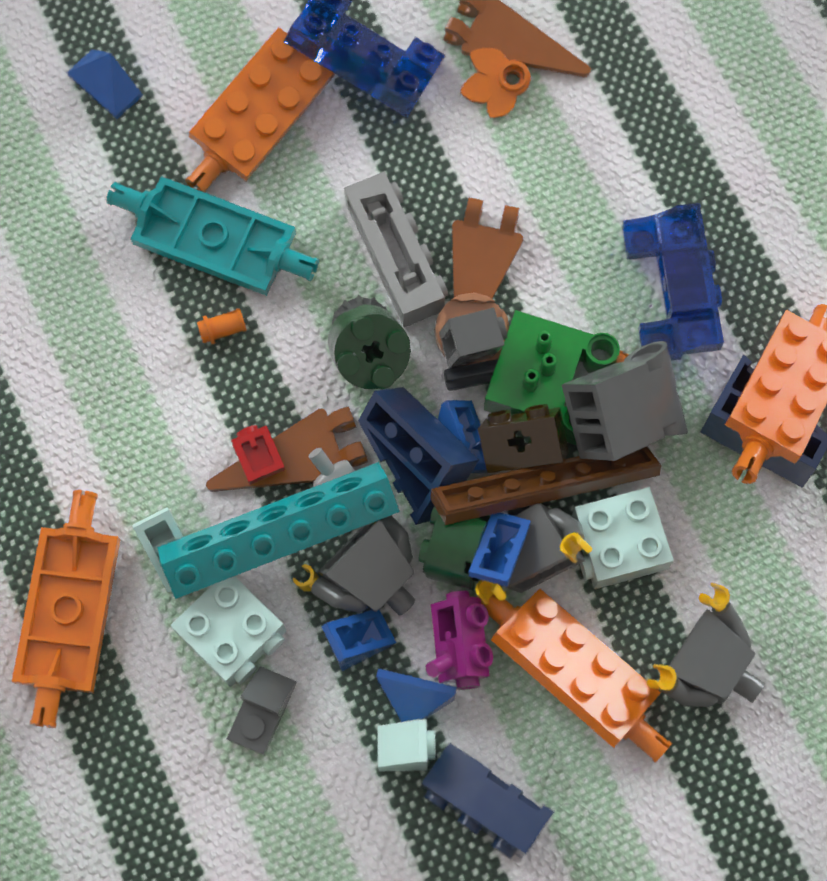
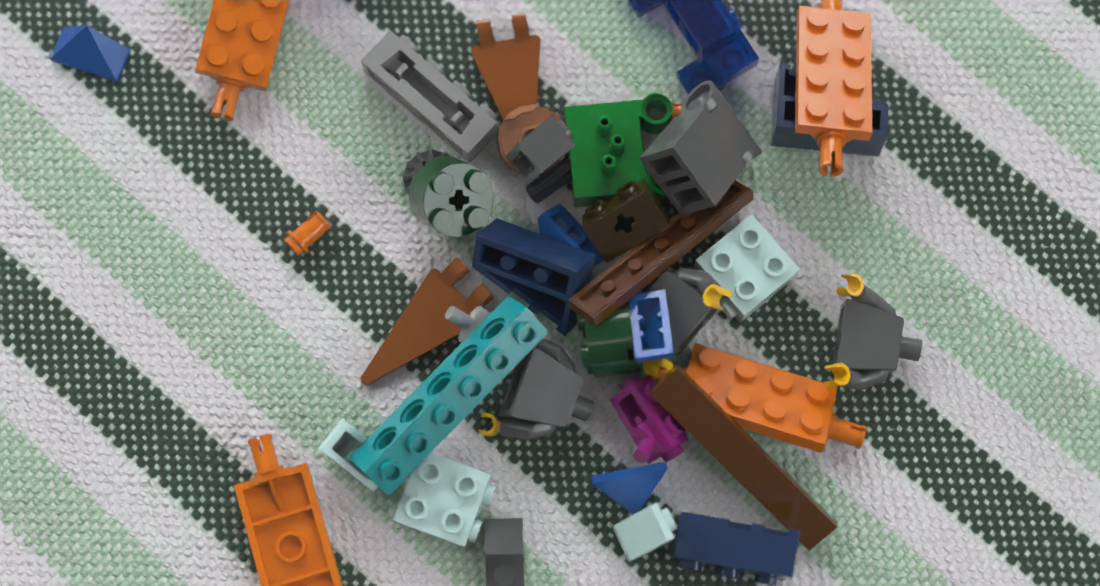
camera: 25 degrees left, 5 degrees up
(212, 234) = (259, 153): teal plate -> none
(257, 453) = (395, 334): red bracket -> none
(358, 637) = (559, 456): blue slope -> none
(534, 718) = (742, 457): none -> reddish brown tile

